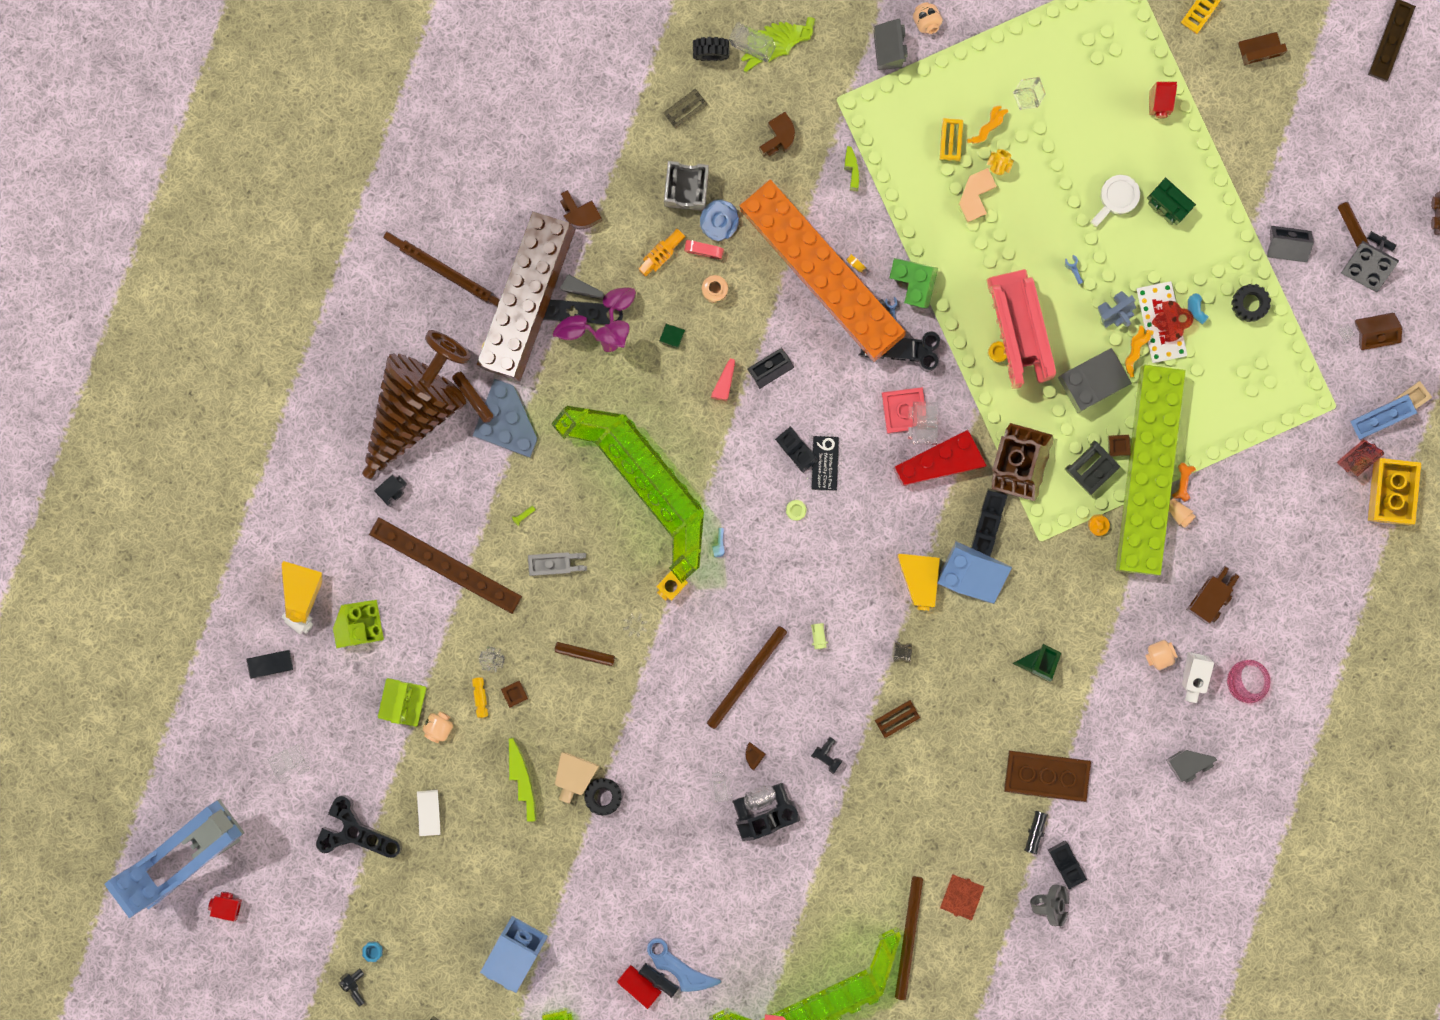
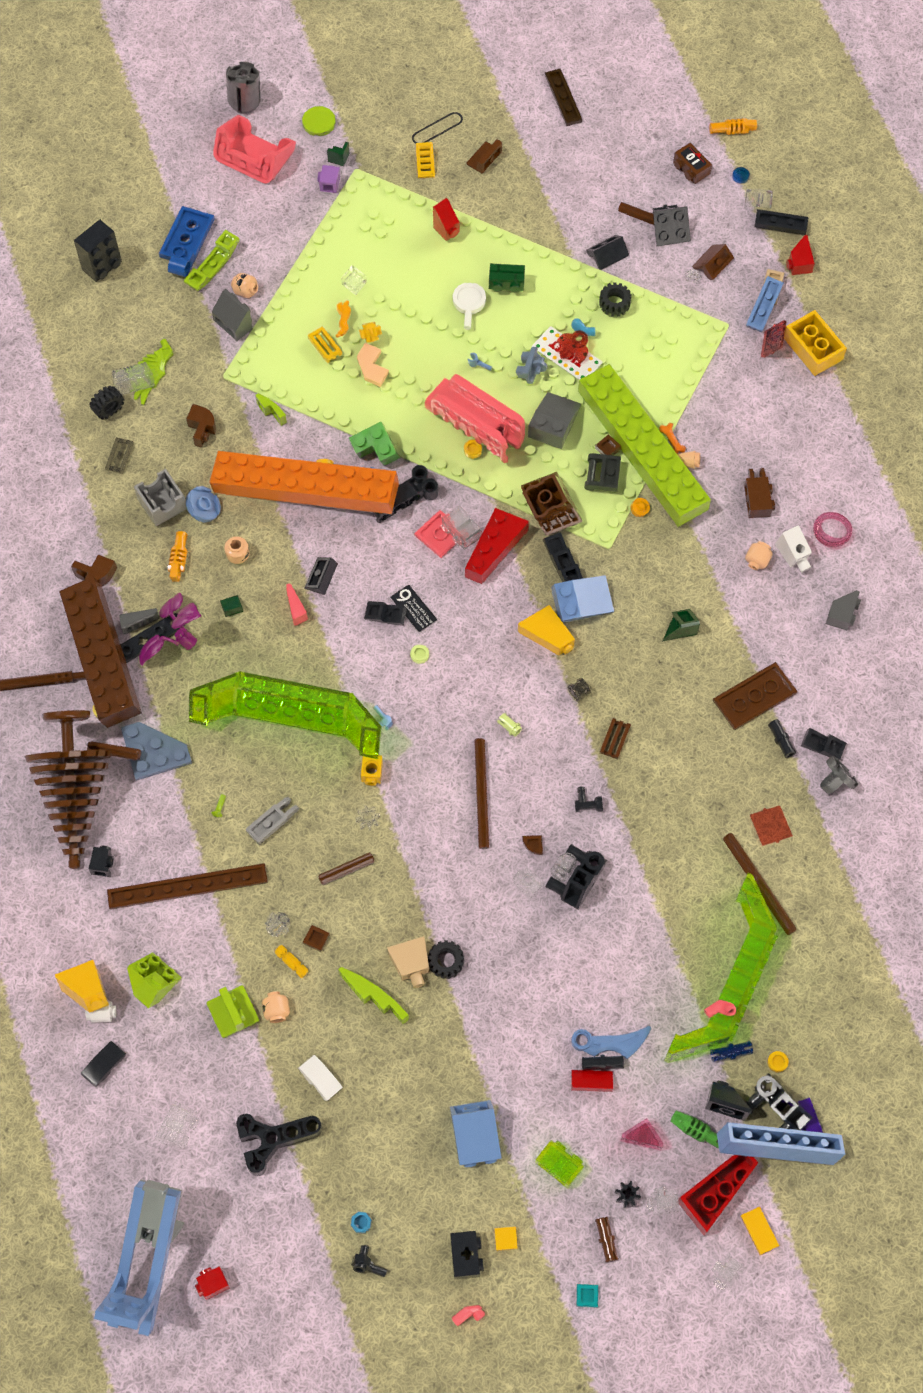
camera: 40 degrees left, 20 degrees down
(703, 249) = (207, 532): coral beam -> none
(1136, 342) = (561, 377): light orange hair -> none

